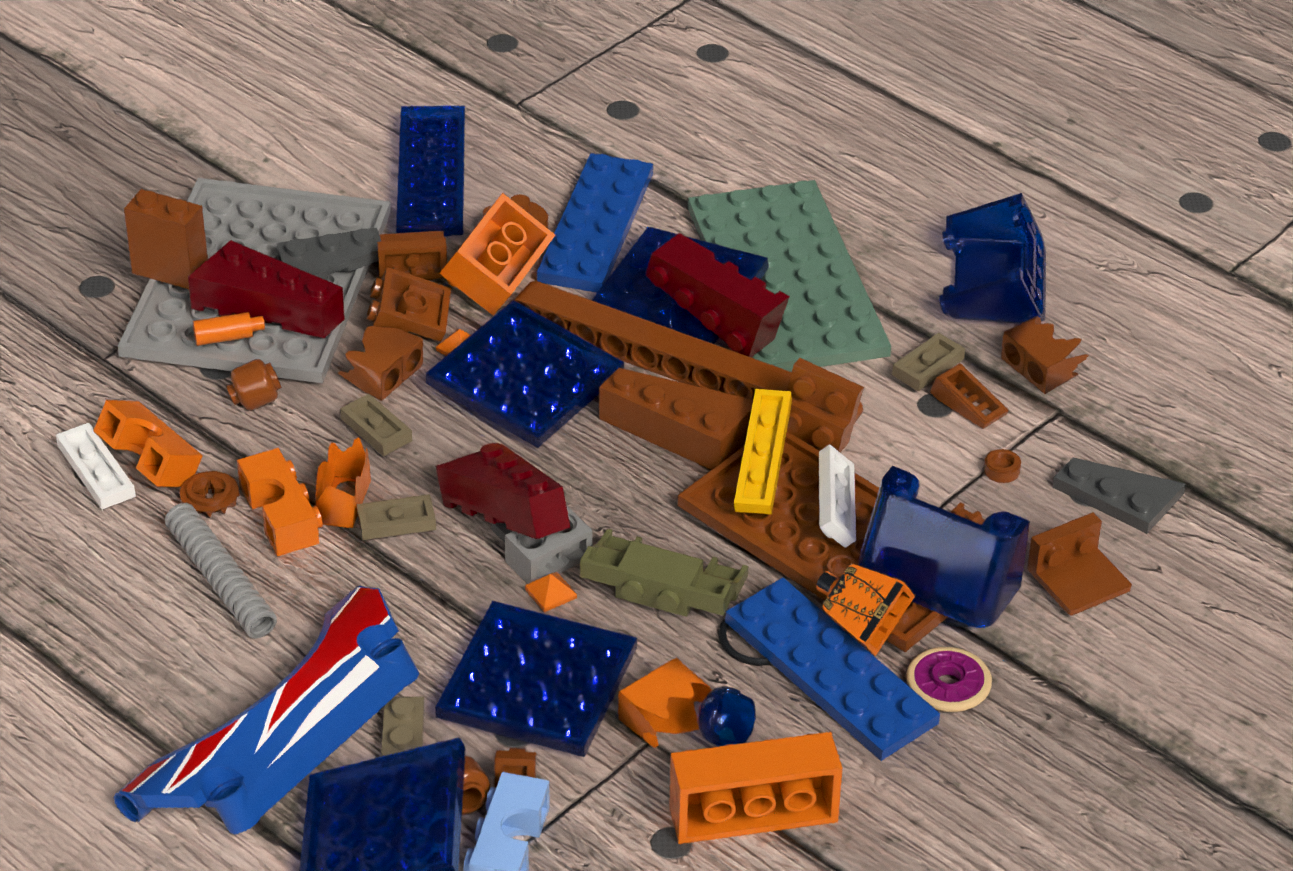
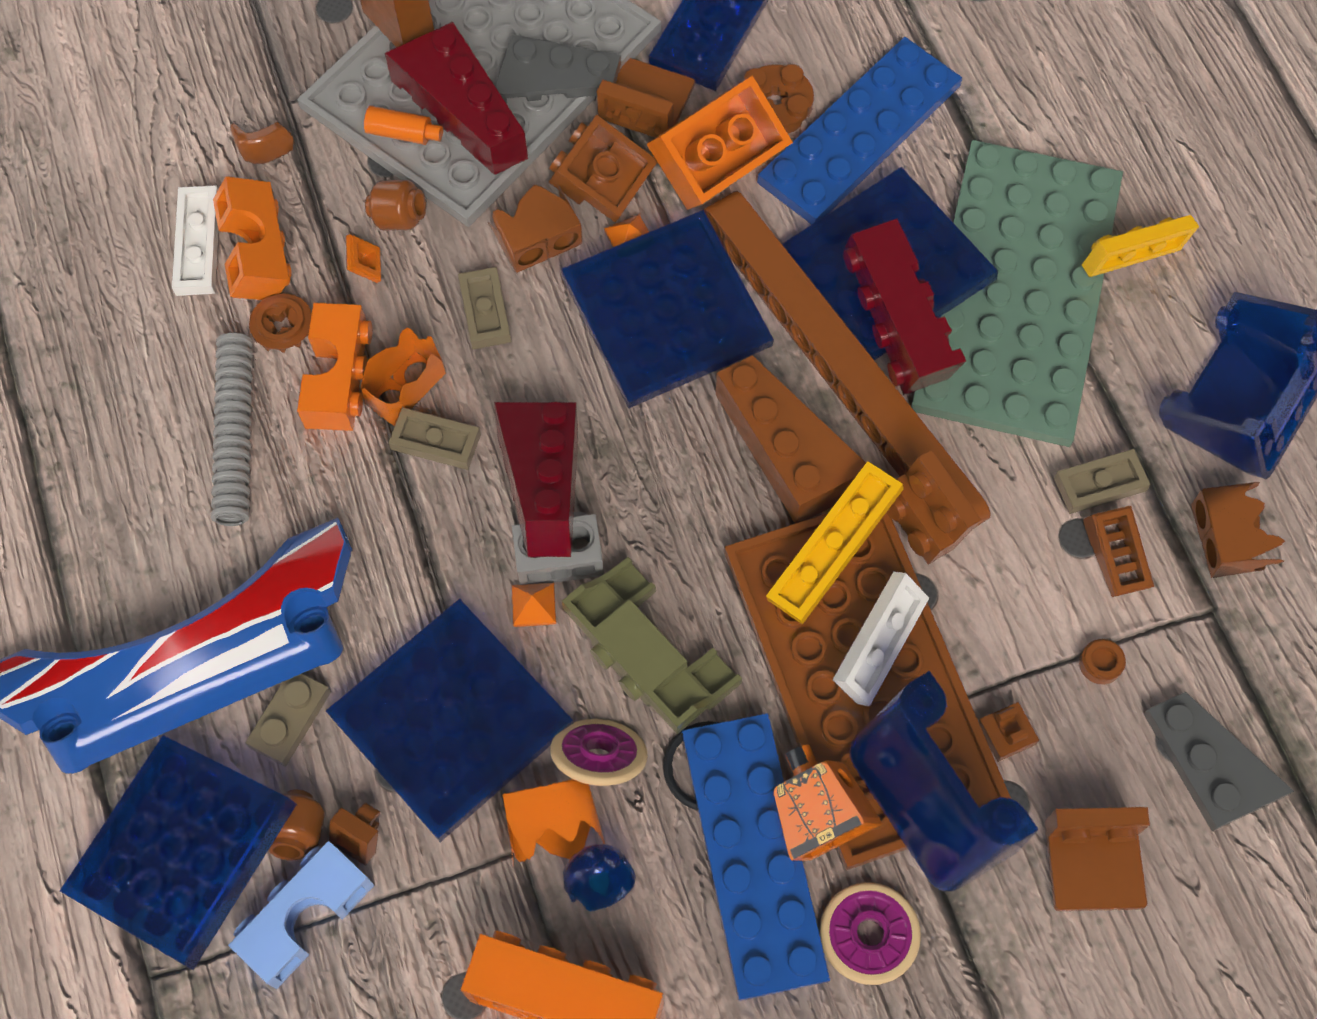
camera: 30 degrees right, 25 degrees up
(106, 386) = (264, 144): none -> dark orange hair
(248, 431) = (363, 258): none -> orange slope
(671, 647) = (623, 762): none -> wheel
(859, 213) = (1139, 245): none -> yellow plate

